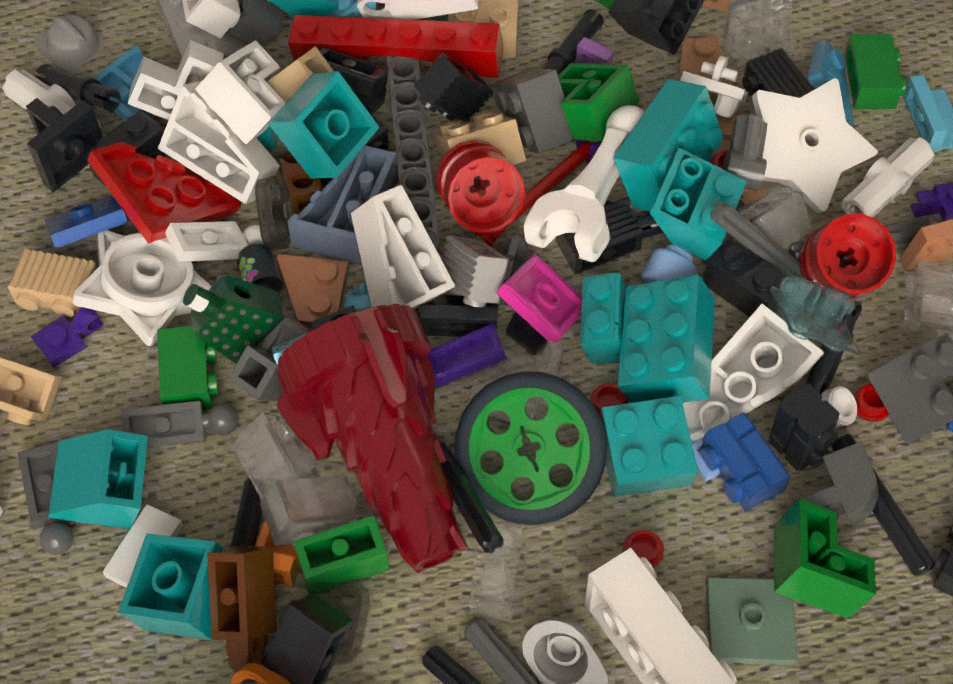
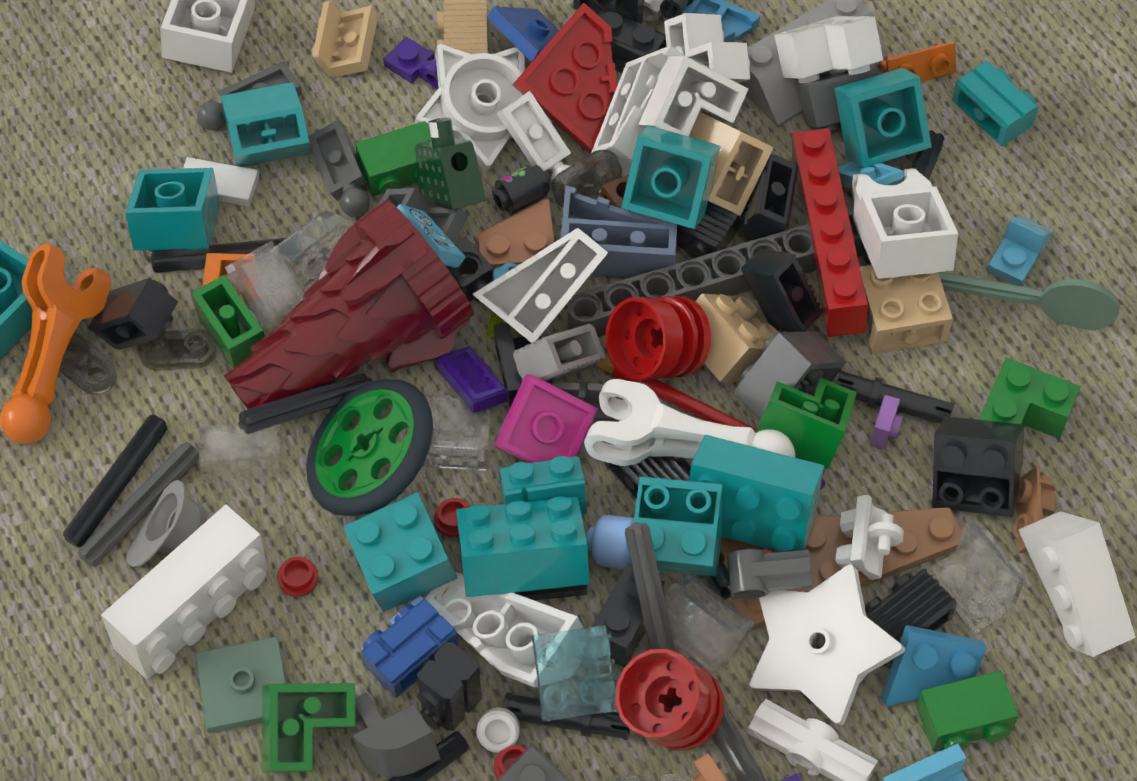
camera: 75 degrees right, 0 degrees up
(242, 601) = (167, 251): reddish brown hinge -> none

